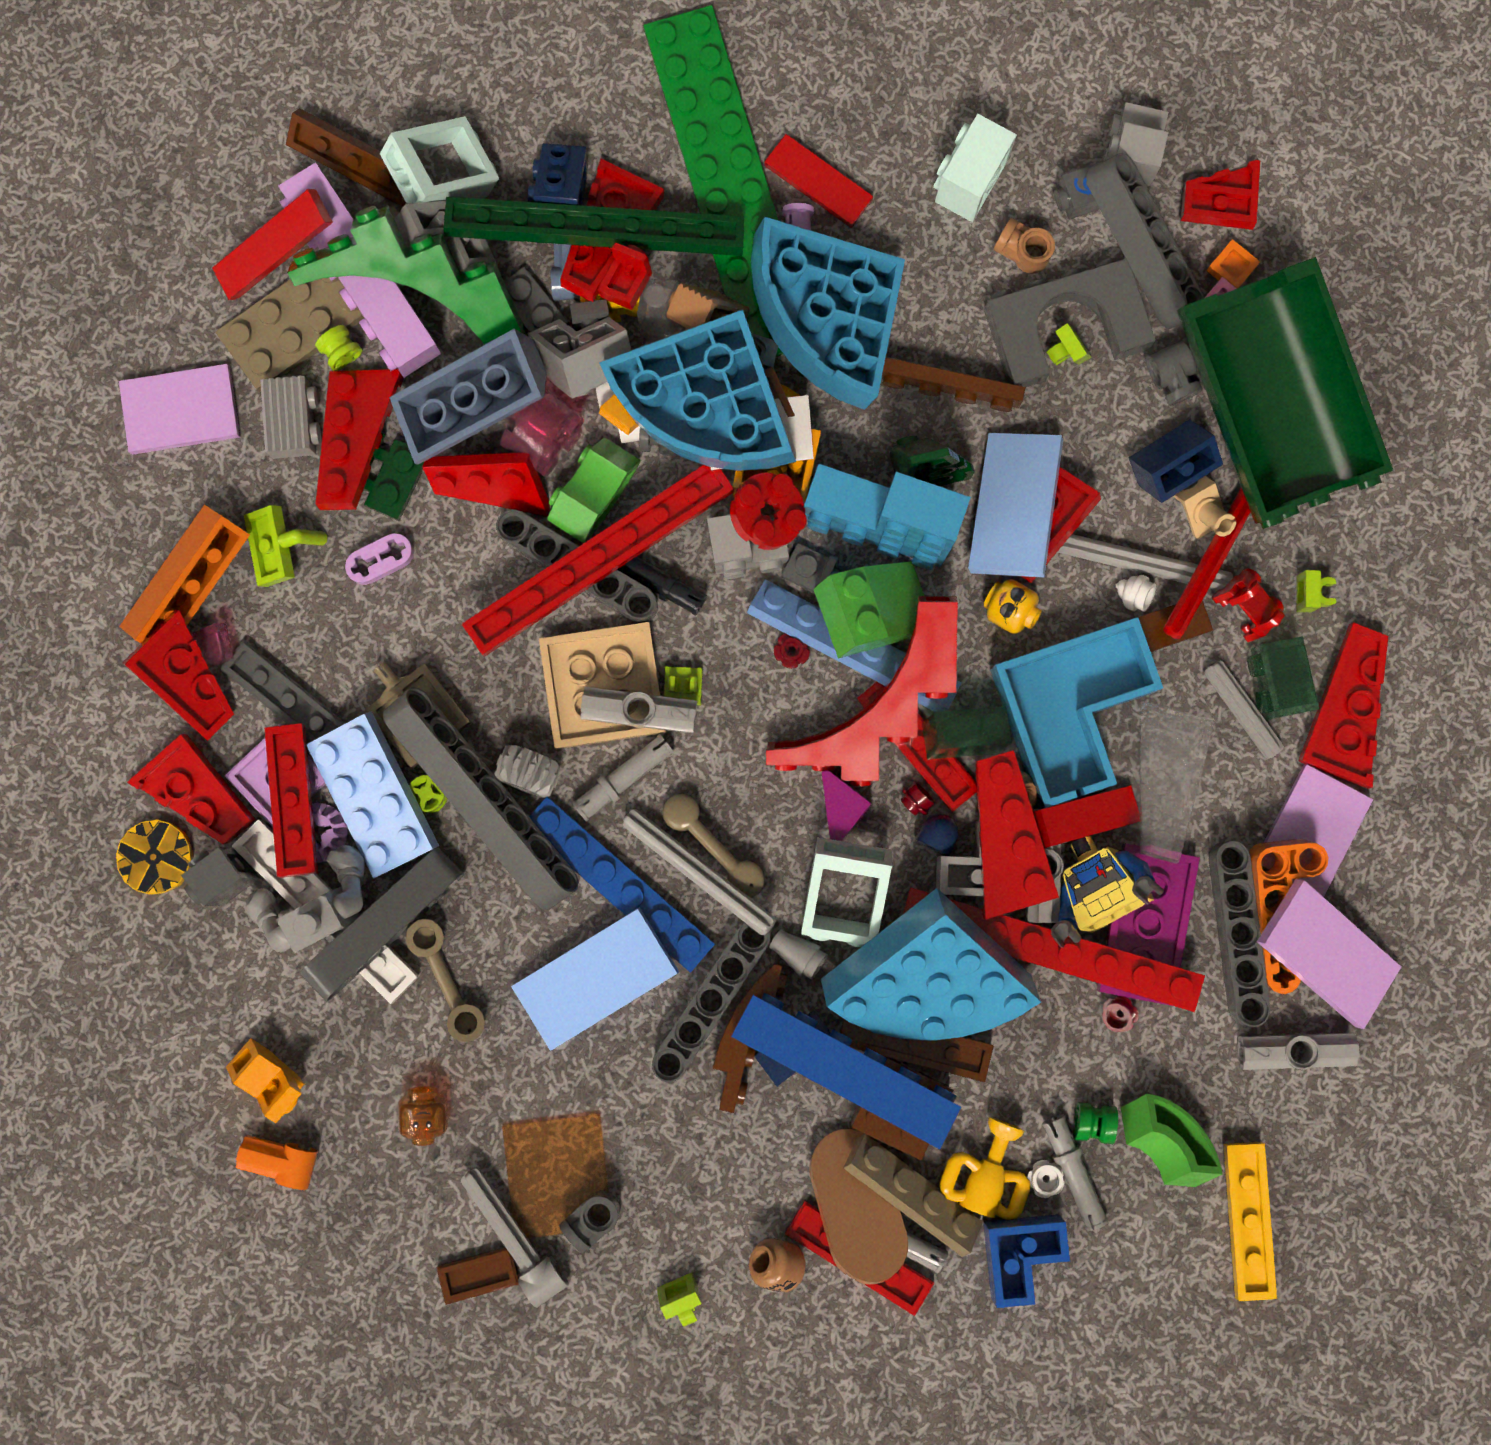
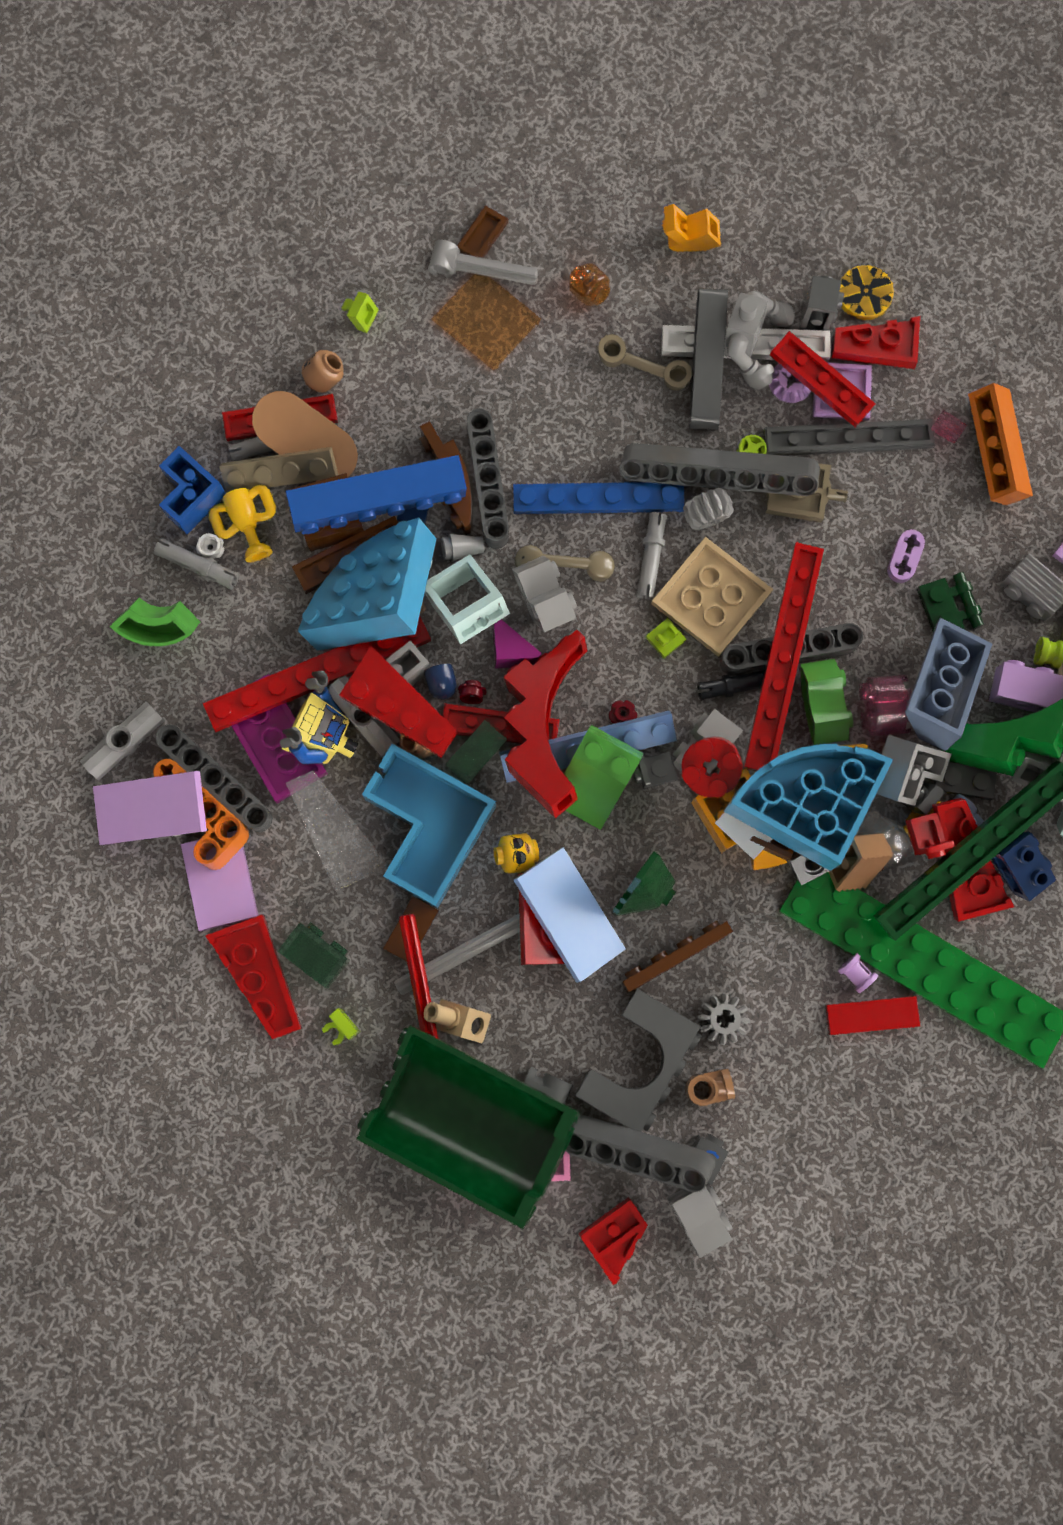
camera: 135 degrees right, 5 degrees down
(177, 672) = (948, 390): red wing -> none
(271, 544) = (972, 509): lime plate -> none
(284, 1163) = (638, 201): orange piece -> none
(351, 432) = (992, 607): red wing -> none
(372, 794) = (781, 422): light blue plate -> none
(489, 479) = (888, 653): red wing -> none
(585, 1231) = (446, 301): dark grey piece -> none
(595, 979) = (563, 434): light blue tile -> none
(614, 707) = (691, 584): light grey piece -> none
(699, 872) = (558, 538): light grey axle -> none
(768, 821) = (544, 598): none -> light grey brick
(827, 306) = (793, 931): dark azure brick -> none
(902, 519) = (641, 829): dark azure piece -> none
(959, 305) = (730, 1027): none -> light grey gear
(973, 167) = (787, 1105): light aqua brick -> none
(1069, 347) = (624, 1048): lime tile -> none
(1087, 816) = (362, 765): red tile -> none
(1095, 1123) = (213, 594): green wheel -> none
(1113, 1020) = (245, 671): dark red plate -> none
(1136, 592) = (449, 930): white plate -> none
(1176, 460) = (496, 1031): dark blue brick -> none
(1233, 264) = (569, 1196): orange plate -> none
(1243, 709) = (323, 916): light grey axle -> none
(1250, 1221) = (72, 623): yellow plate -> none
(1256, 603) = (373, 984): red piece -> none

